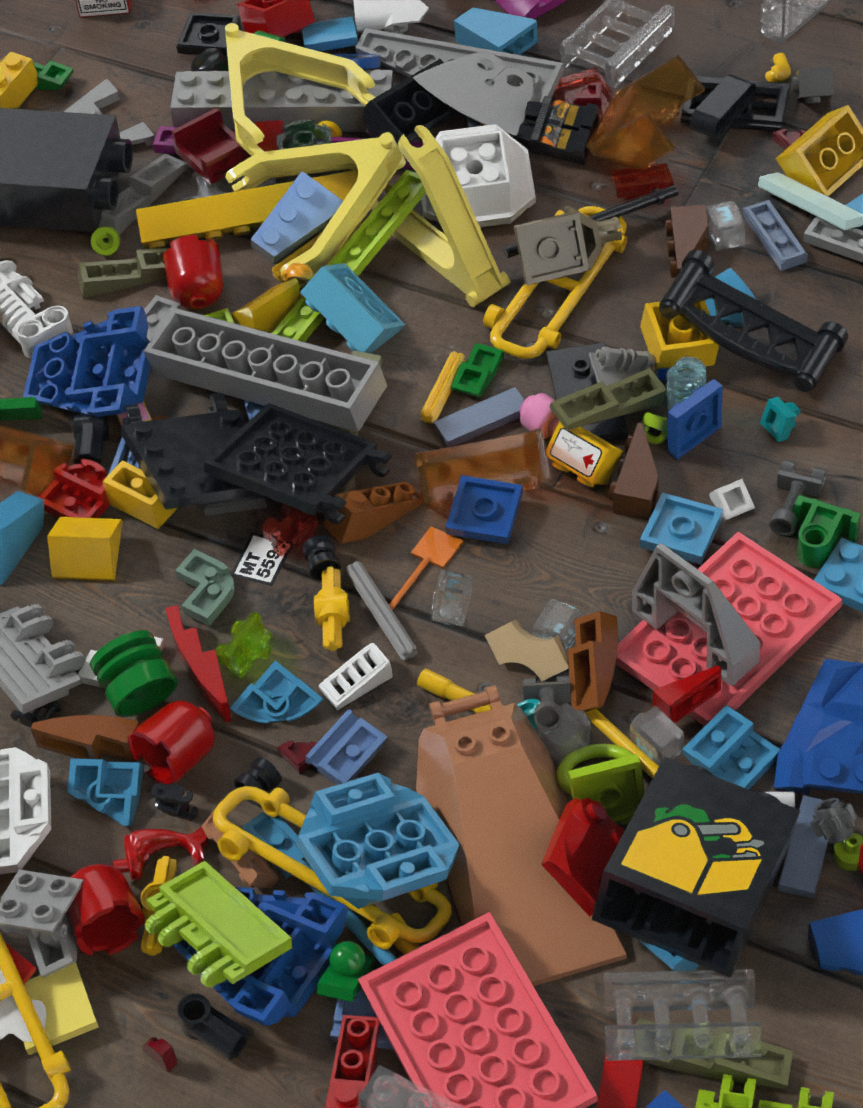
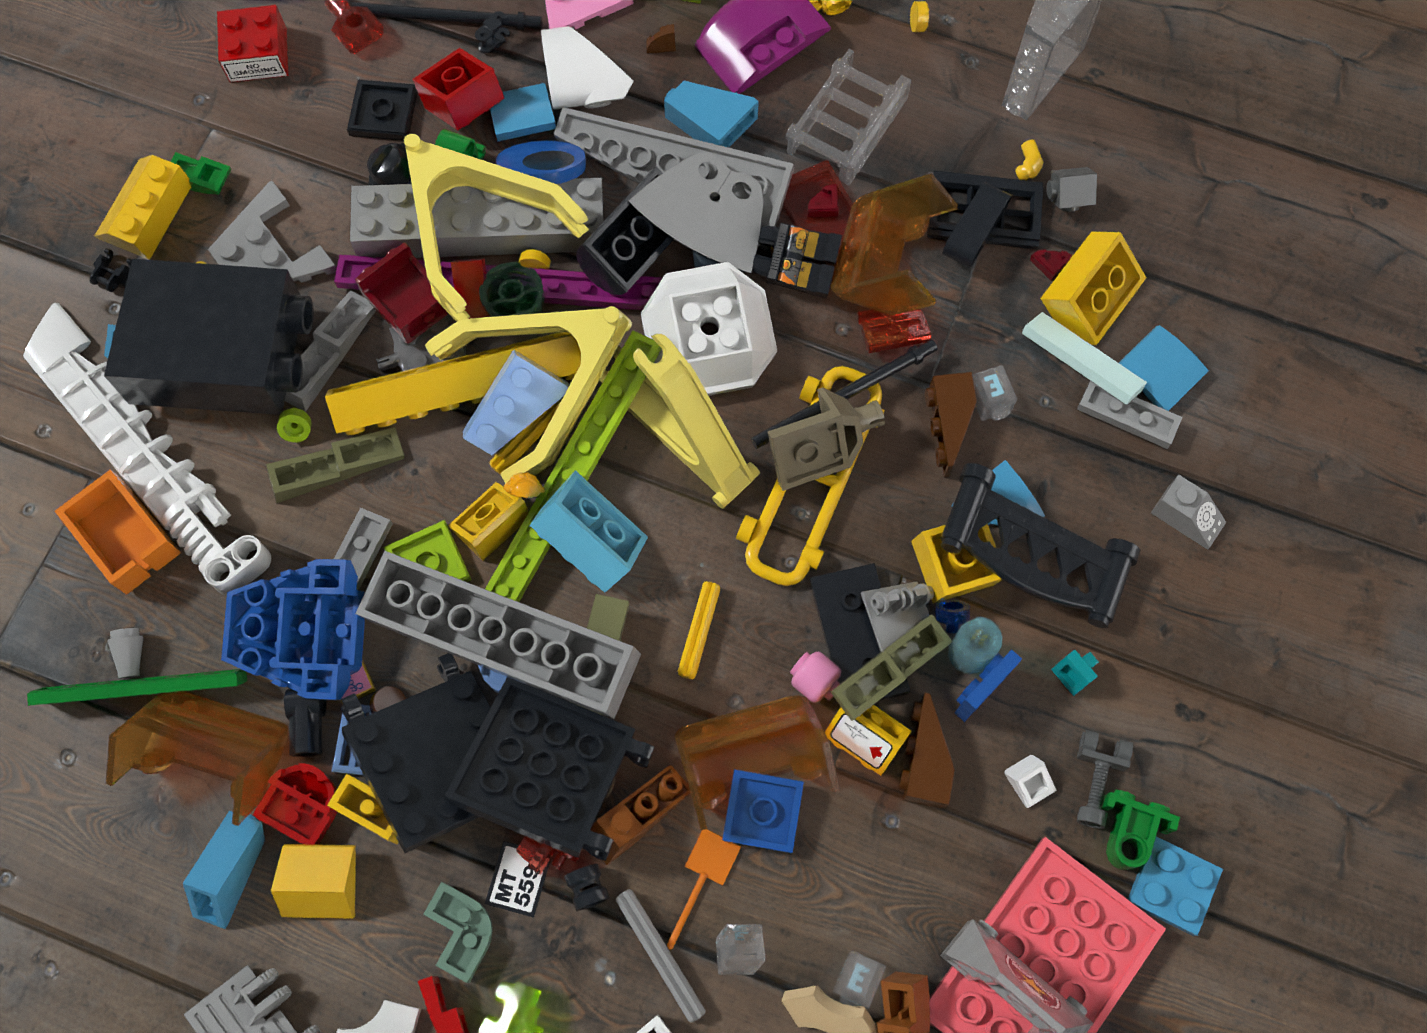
camera: 10 degrees left, 20 degrees up
(194, 272) = (402, 482): red cylinder -> none
(331, 609) = (605, 960): yellow axle -> none
(478, 371) = (735, 605): green slope -> none
(479, 418) = (746, 672): sand blue tile -> none
(657, 422) = (941, 683): lime tile -> none
(682, 527) = (982, 829): dark azure plate -> none
(775, 235) = (1045, 400): sand blue tile -> none

